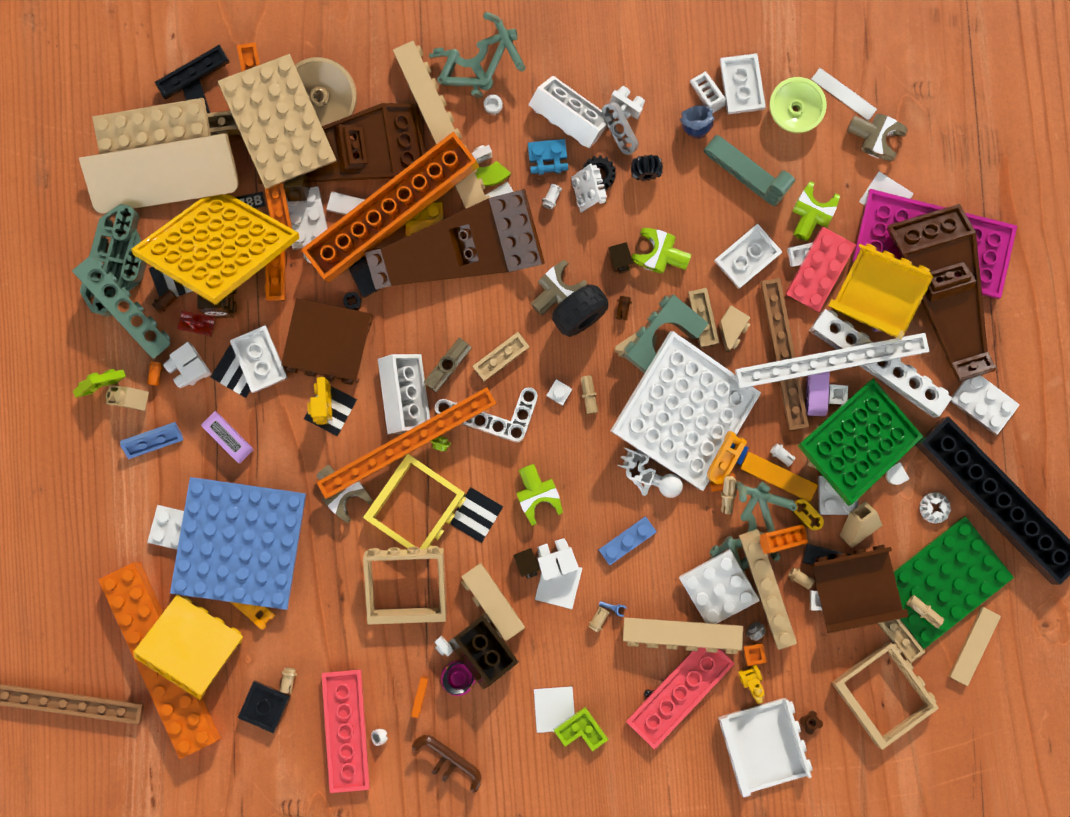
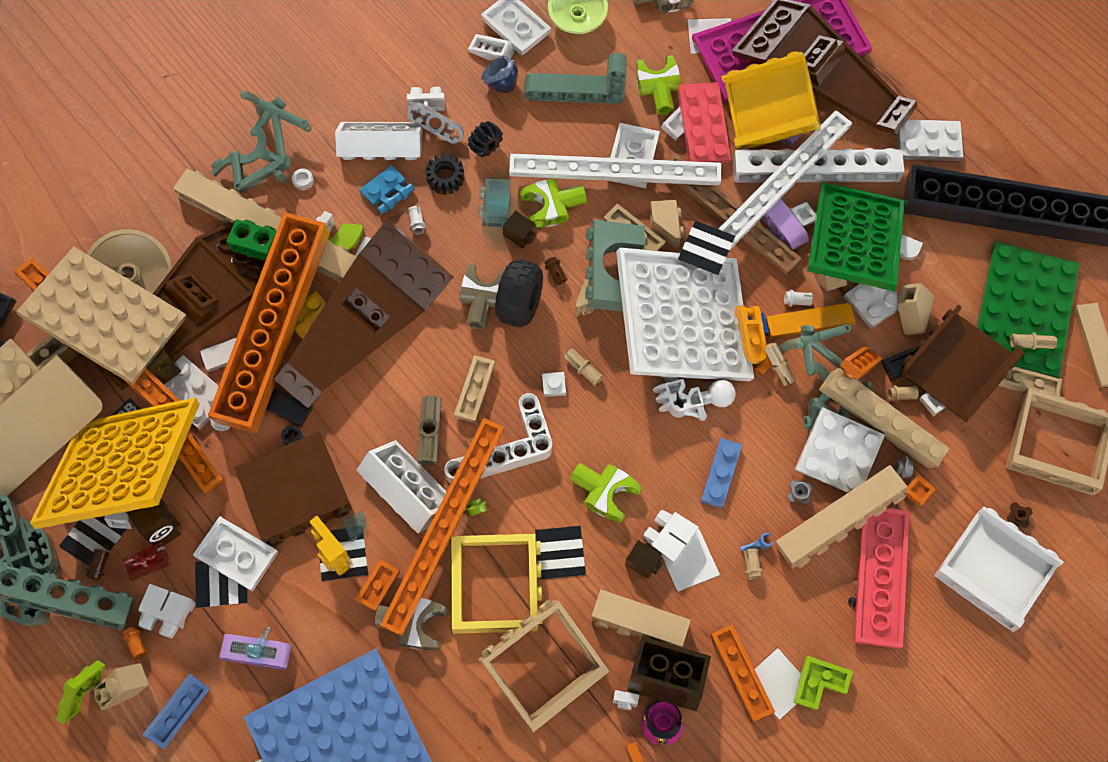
camera: 35 degrees left, 15 degrees down
(225, 439) = (255, 650): none -> clear light blue hand
(337, 450) = (377, 585): none -> orange plate
(351, 396) = (355, 525): none -> clear light blue tile
(418, 136) = (251, 244): none -> green brick
(534, 686) = (742, 673): none -> orange plate
(586, 187) = (444, 189): white hinge -> none
(619, 223) = (495, 202): none -> clear light blue brick
(671, 599) = (797, 486): none -> light grey plate
(724, 261) = (615, 169): none -> white plate
(740, 373) = (706, 247): none -> black sticker
(752, 678) = (938, 513): yellow piece -> none
(810, 511) = (862, 335): yellow beam -> none
(926, 508) = (958, 258): white gear -> none

